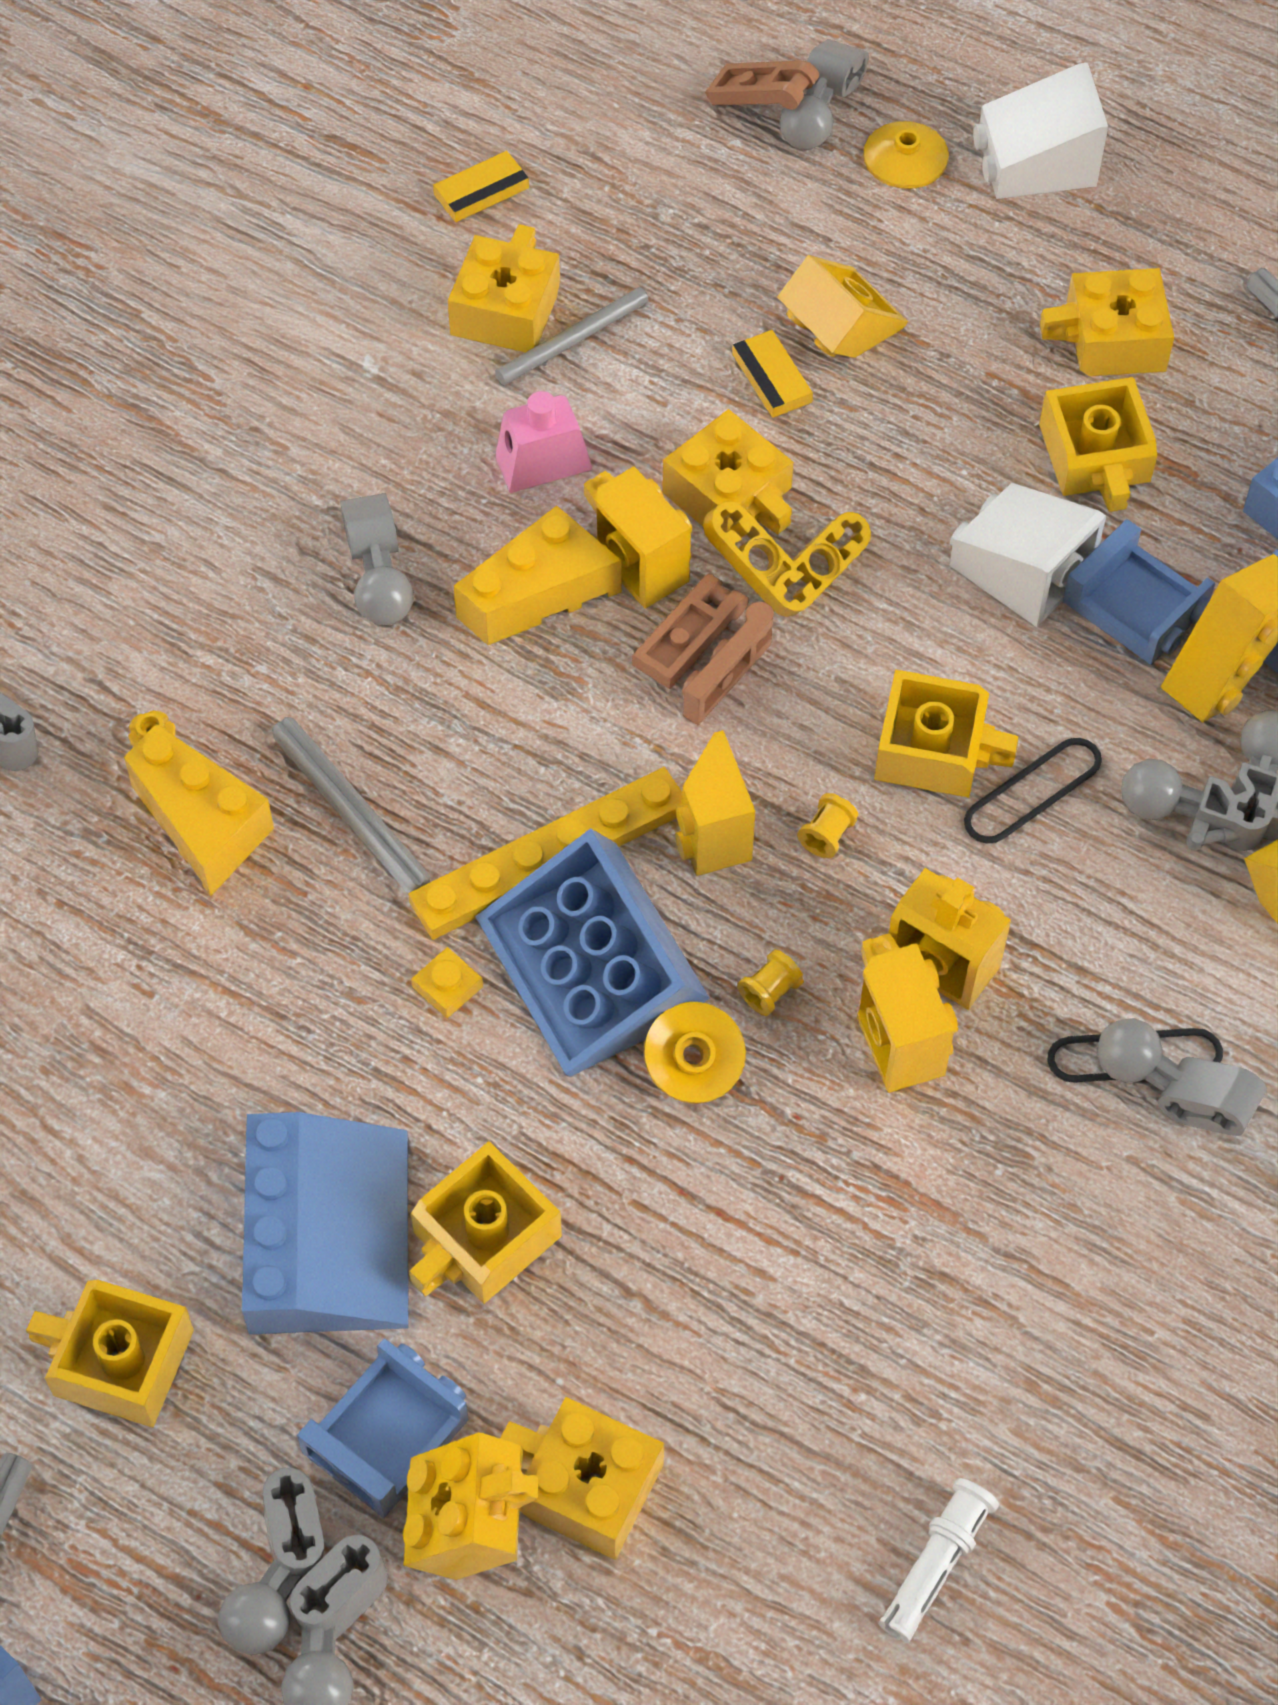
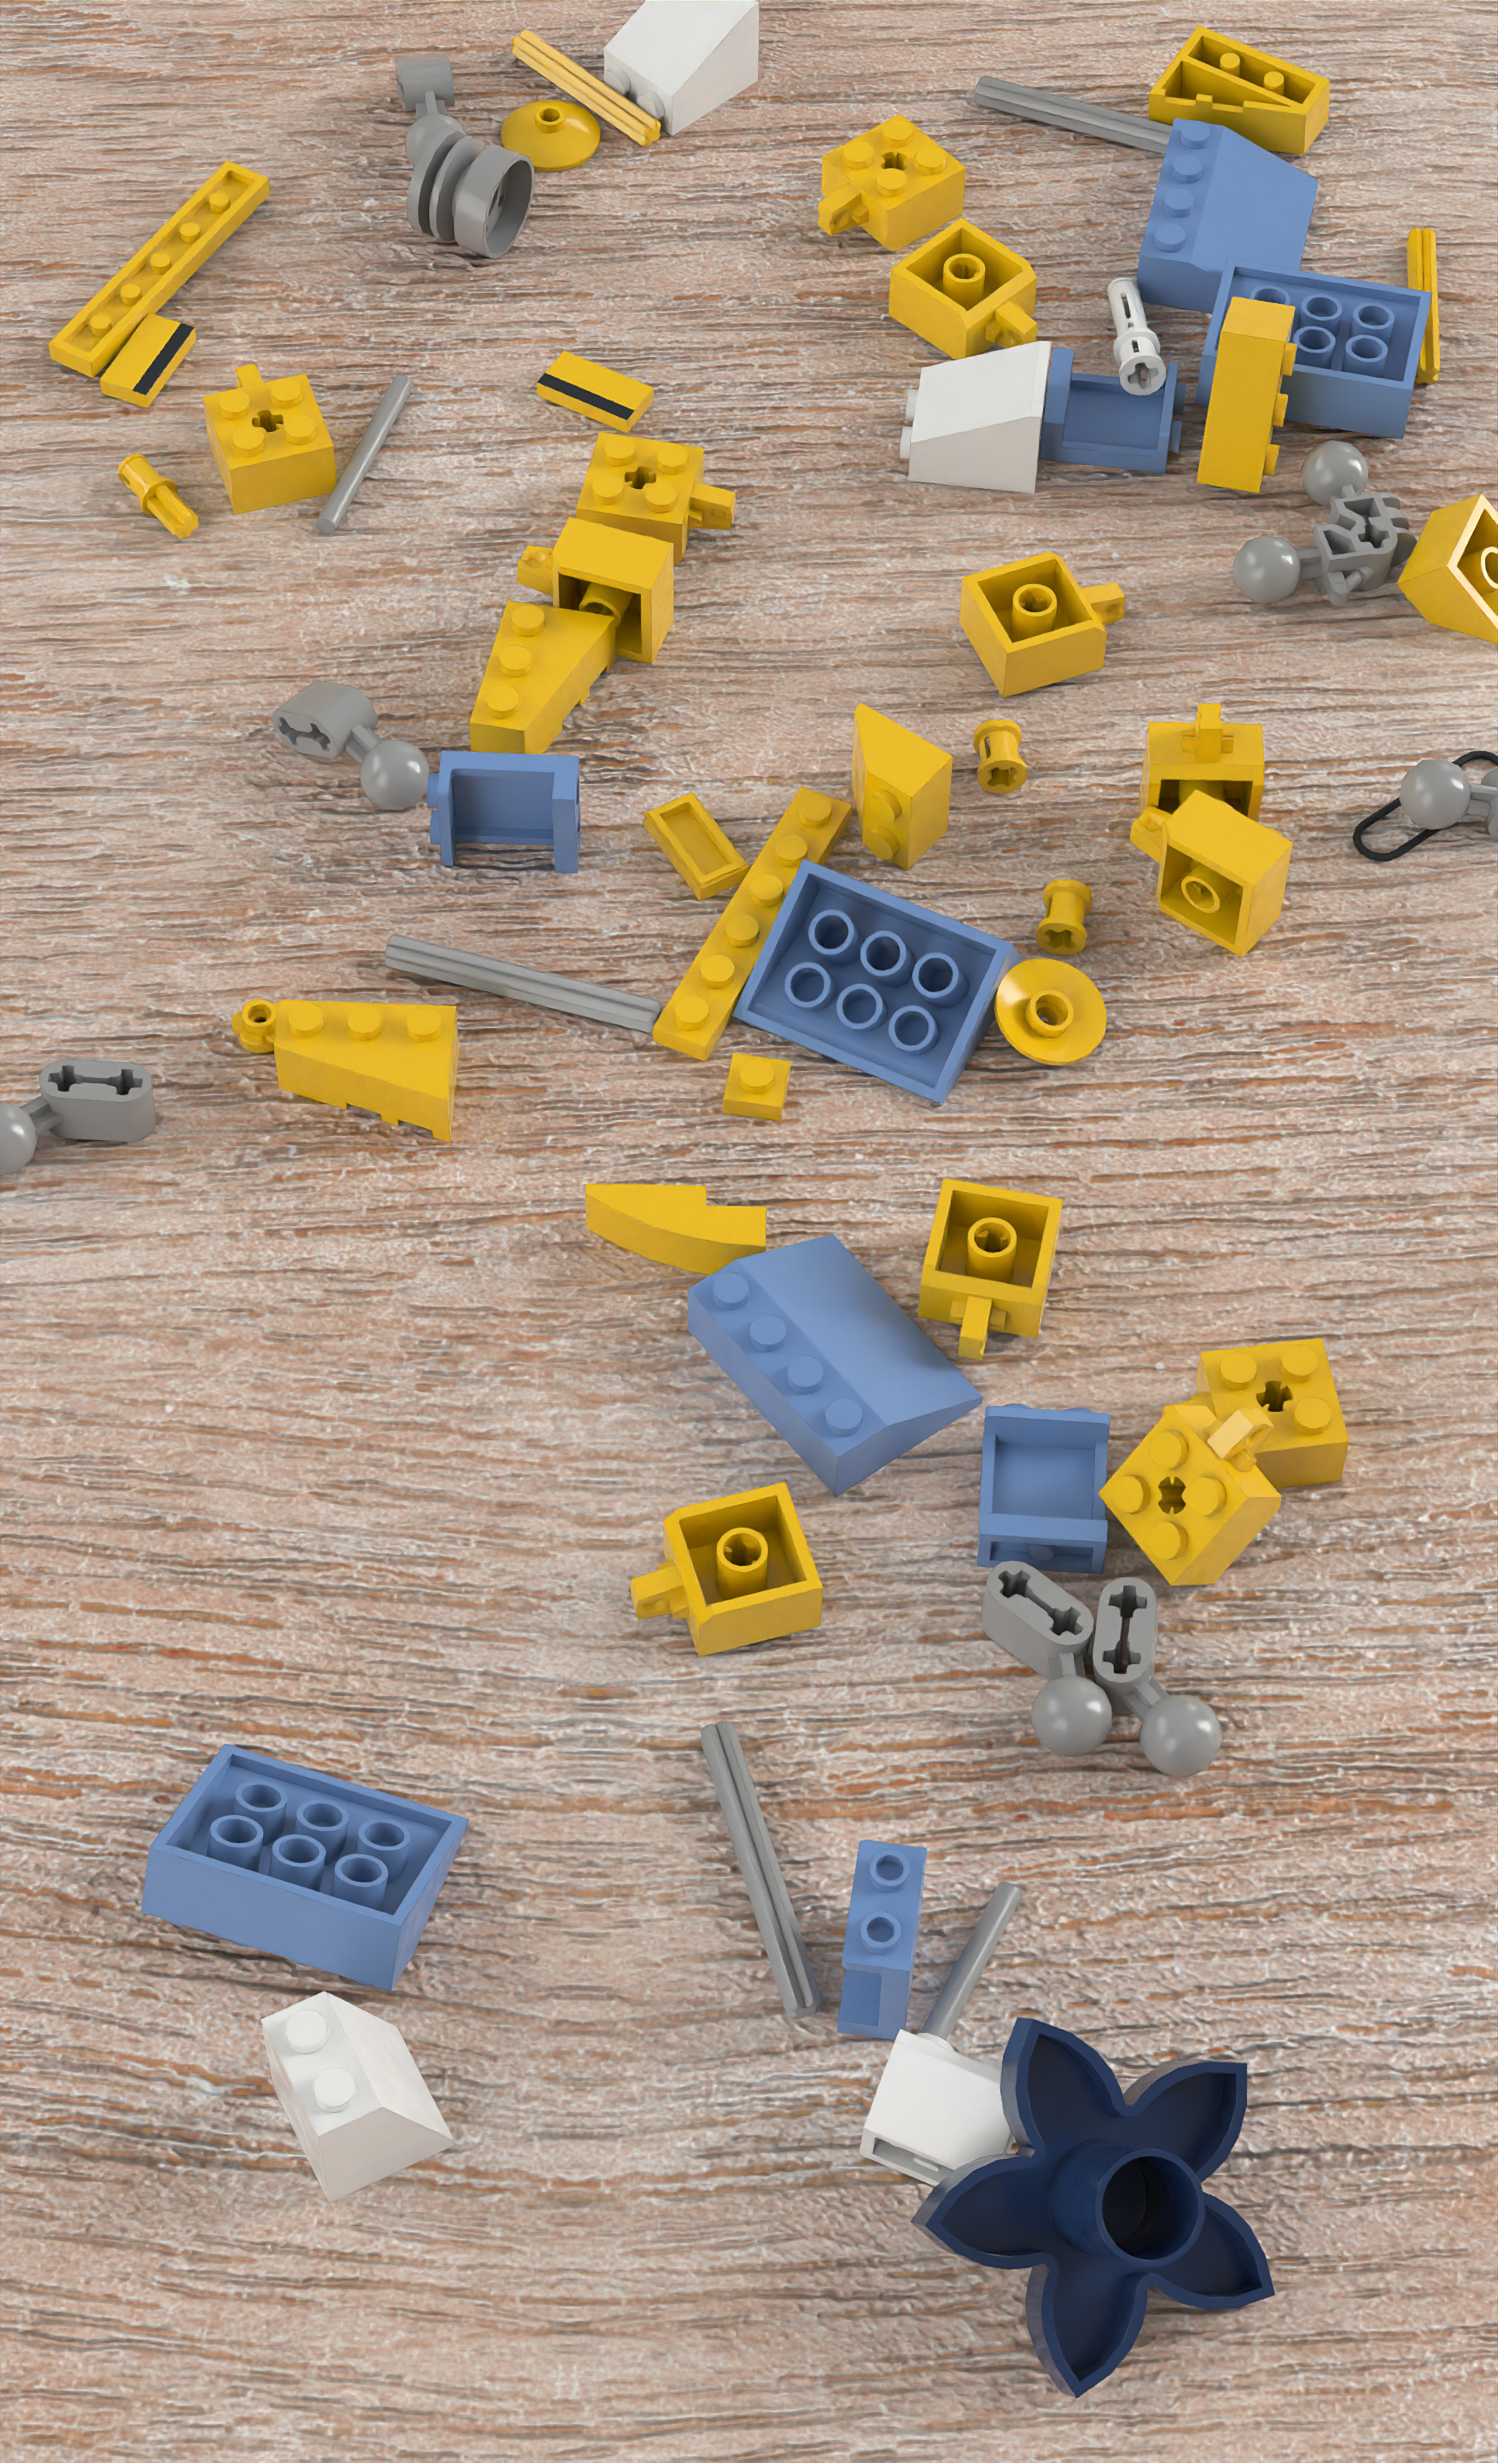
camera: 35 degrees left, 5 degrees down
(302, 1060) = (675, 1224): none -> yellow slope
(403, 293) = (157, 495): none -> yellow axle
(435, 658) = (507, 802): none -> medium blue panel
(540, 443) = (432, 558): bright pink torso -> none
(542, 119) = (159, 269): none -> yellow plate
(557, 769) = (696, 846): none -> yellow tile
(689, 631) = (719, 658): nougat plate -> none
(728, 663) = (783, 661): nougat plate -> none
(762, 83) = (368, 126): nougat plate -> none
(782, 570) = (697, 530): yellow beam -> none
(791, 172) = (470, 193): none -> light grey wheel
(839, 307) = (613, 299): yellow slope -> none
(958, 130) = (586, 88): none -> yellow axle
(1013, 780) = (1173, 640): black piece -> none
(1197, 551) = (1132, 334): none -> white pin

